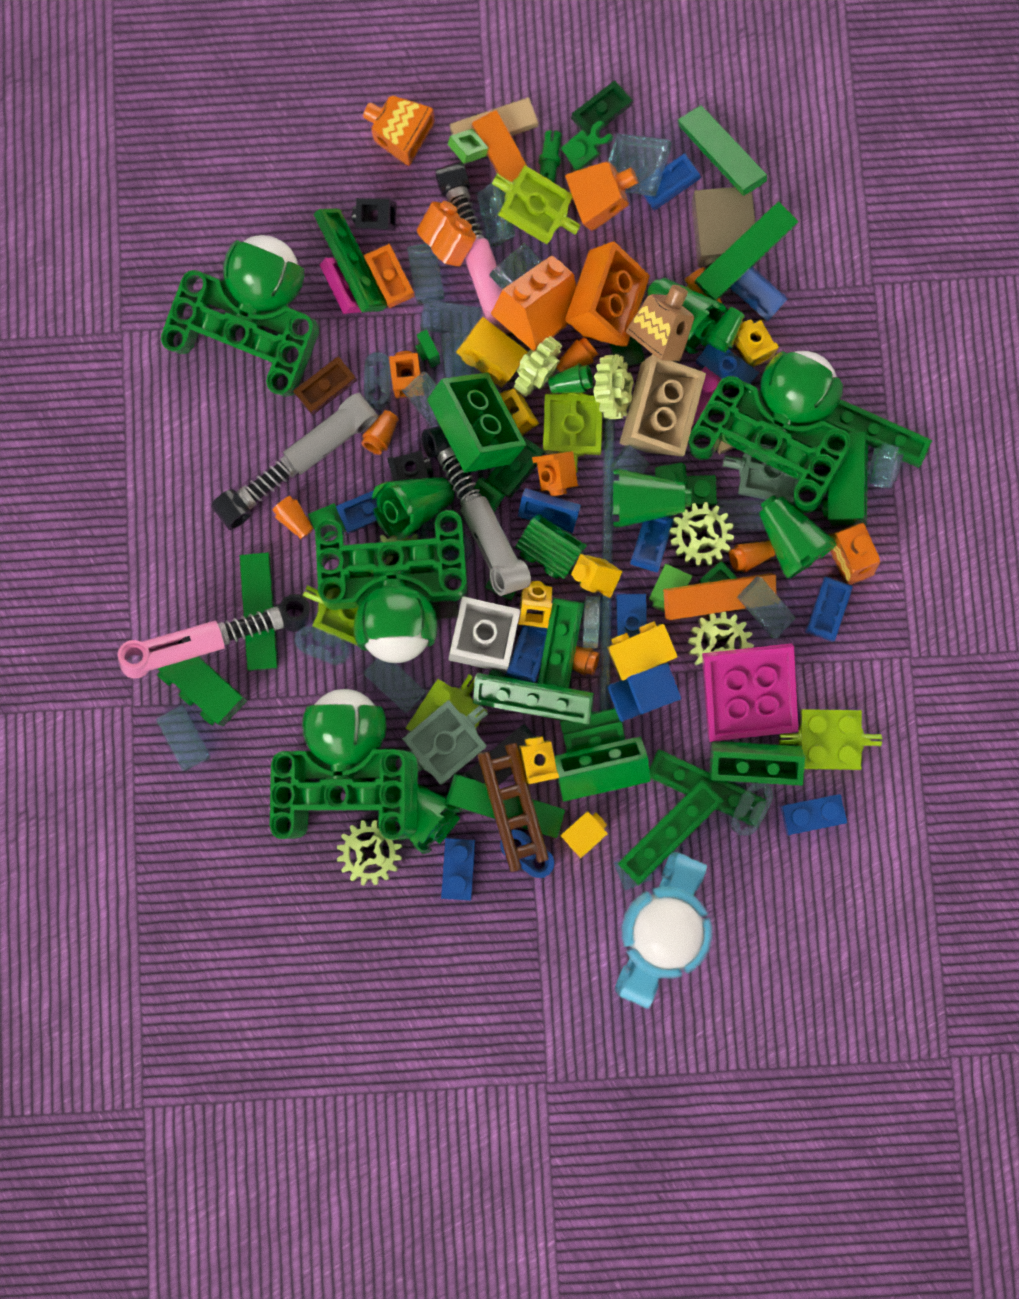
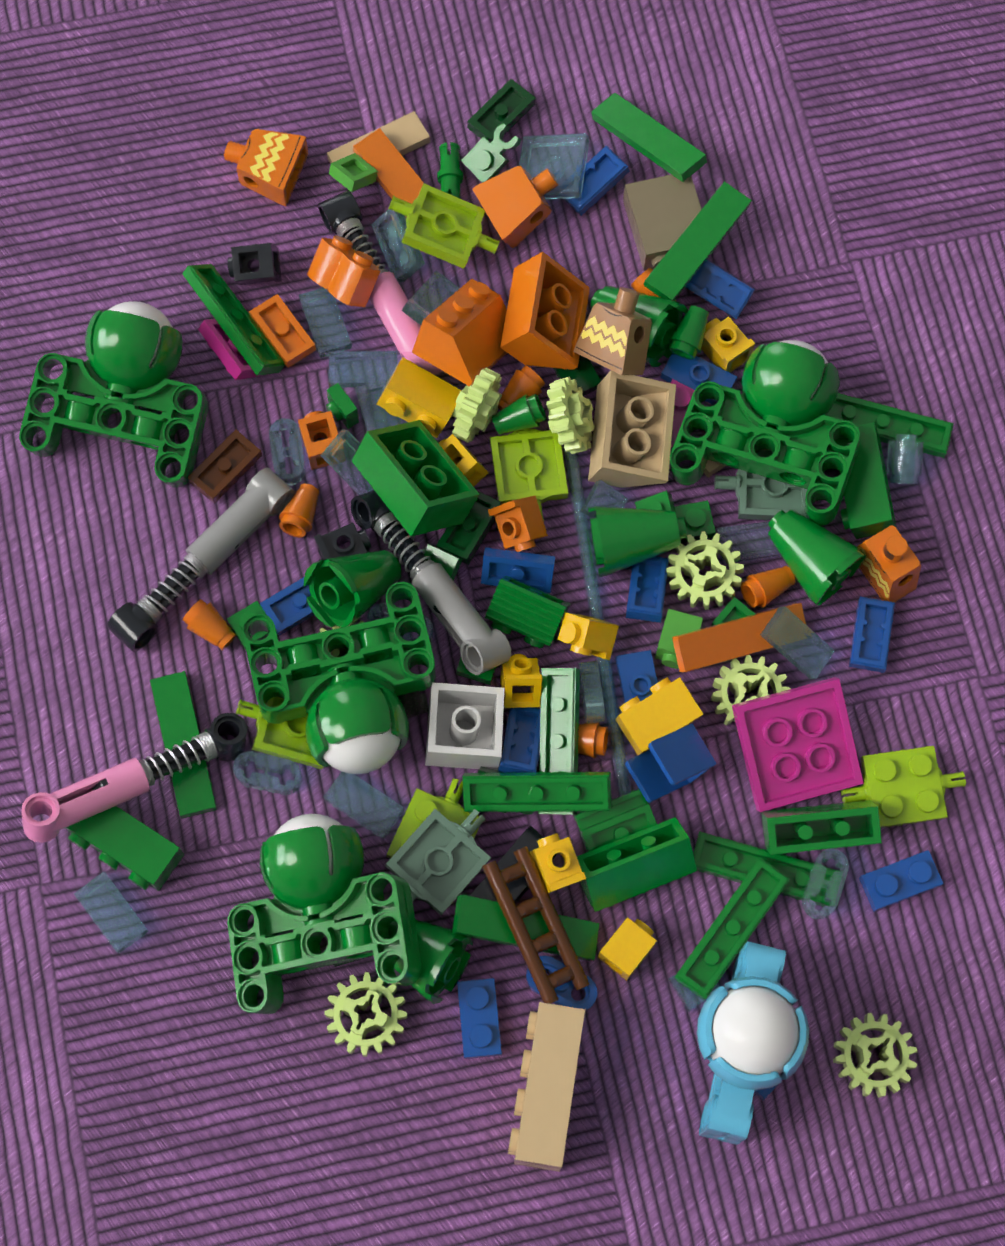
camera: 15 degrees left, 10 degrees down
(502, 936) = (549, 1086): none -> tan brick
(754, 960) = (862, 1044): none -> yellowish green gear

